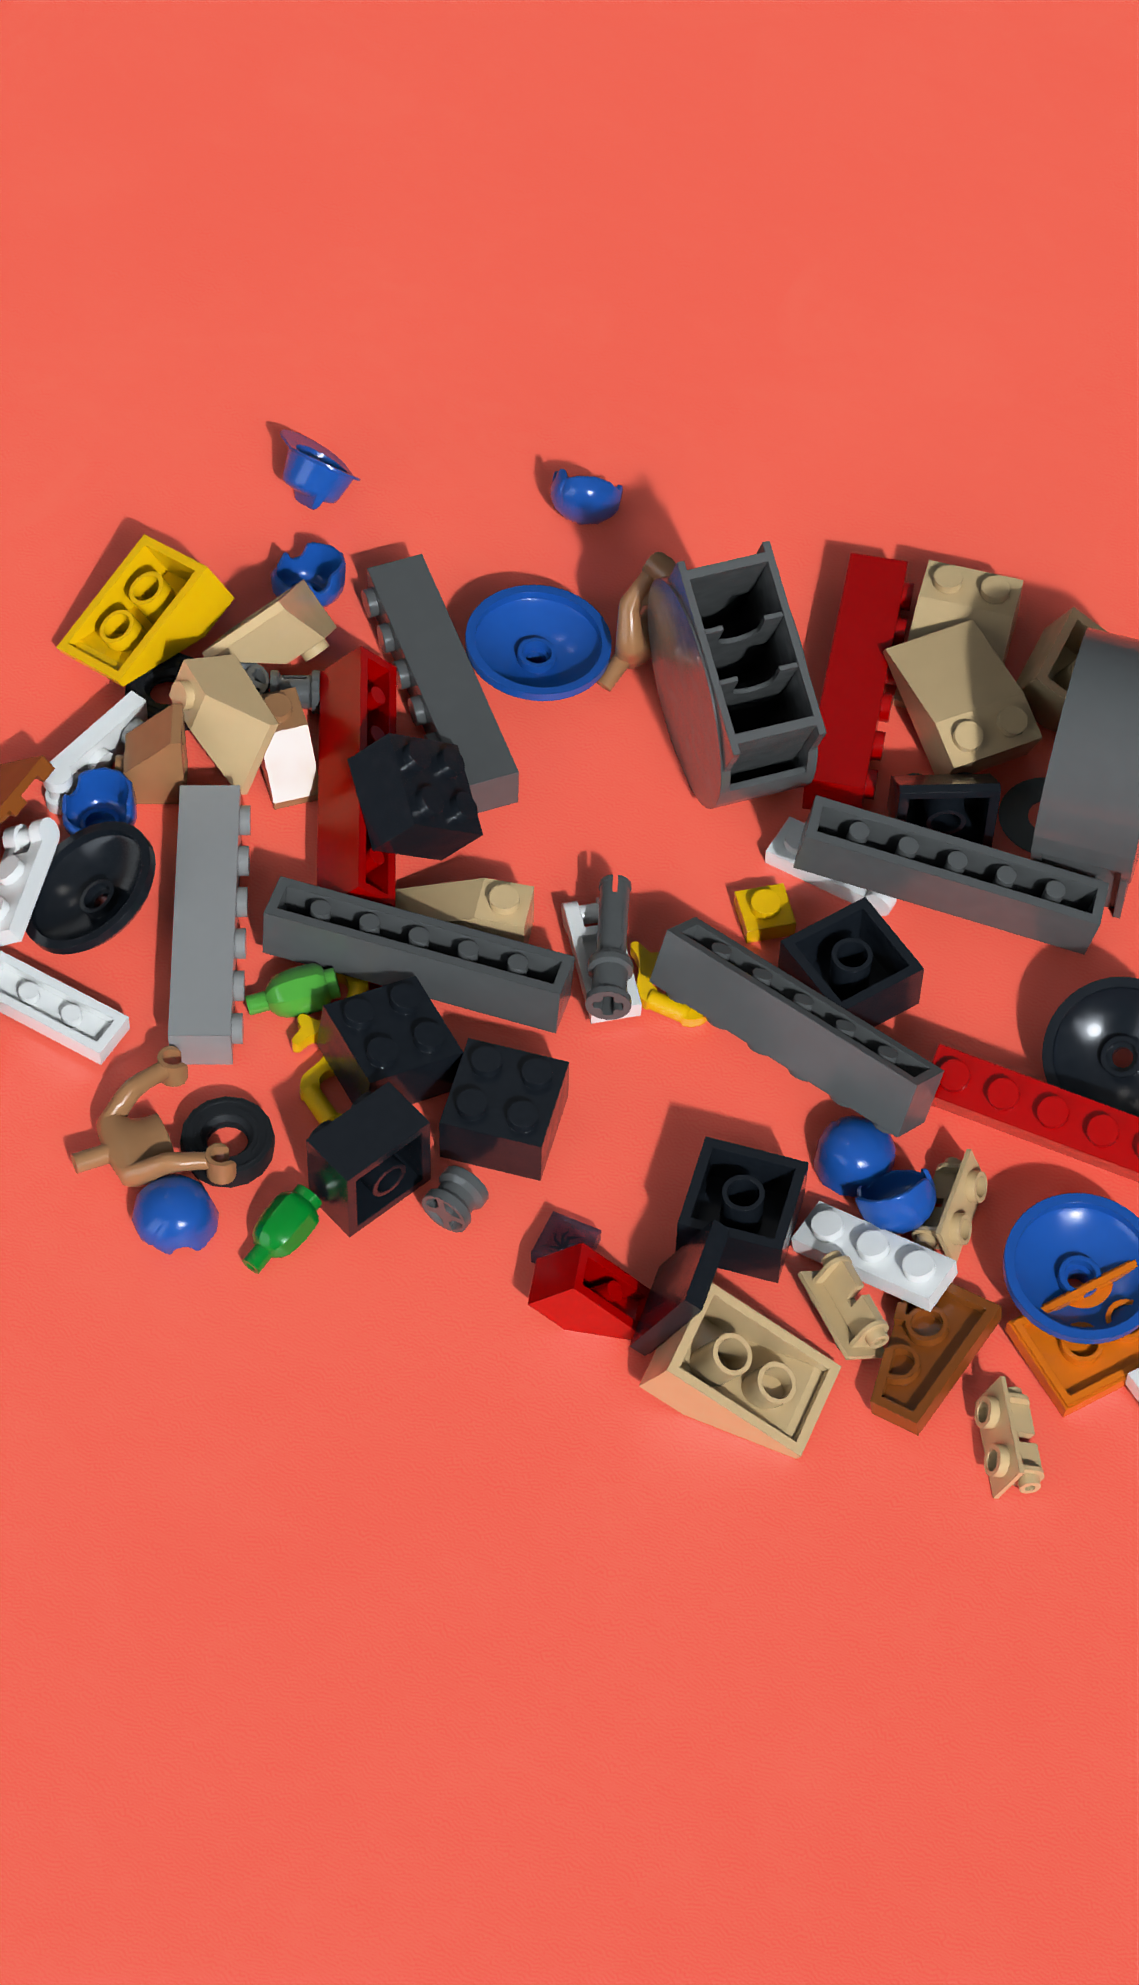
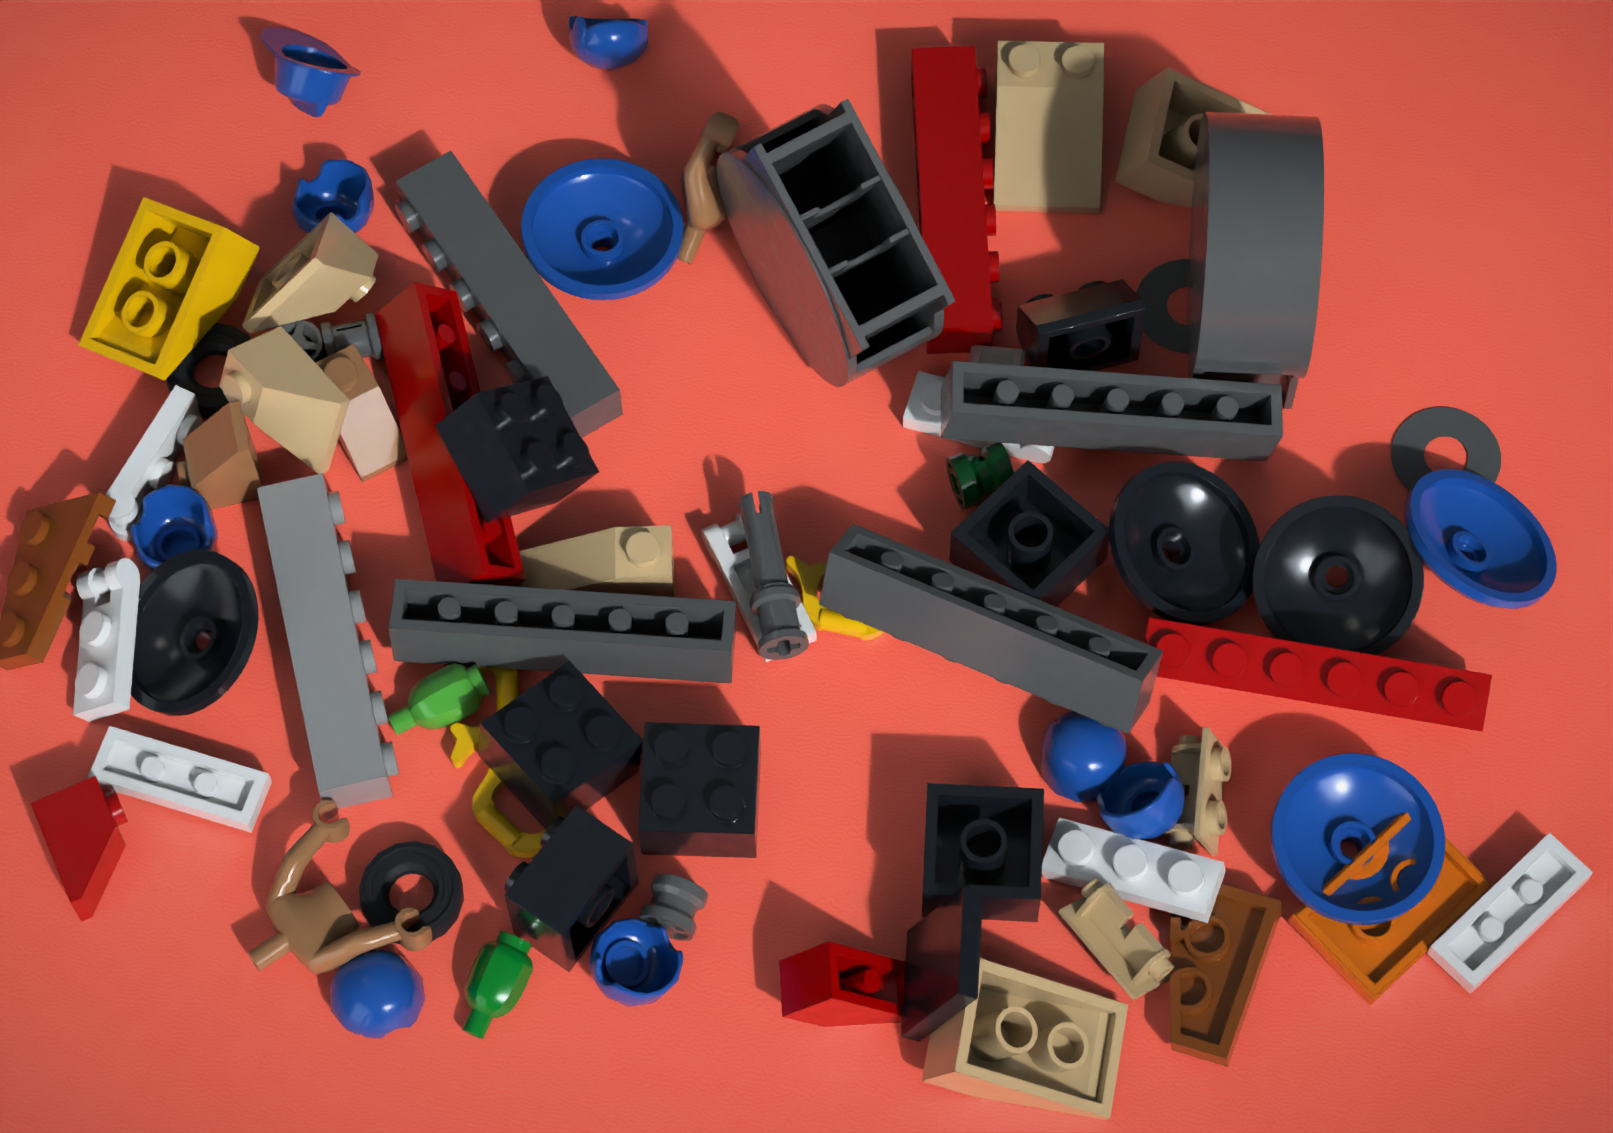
camera: 10 degrees left, 10 degrees up
(408, 1234) = (634, 962): none -> blue hair
(562, 1233) = (801, 926): tile -> none
(764, 913) = (918, 489): yellow plate -> none
(813, 906) = (976, 476): none -> dark green wheel
(962, 700) = (1070, 196): tan slope -> none
(1003, 984) = (1199, 527): none -> black dish
(1003, 1418) = (1310, 1026): tan hinge -> none

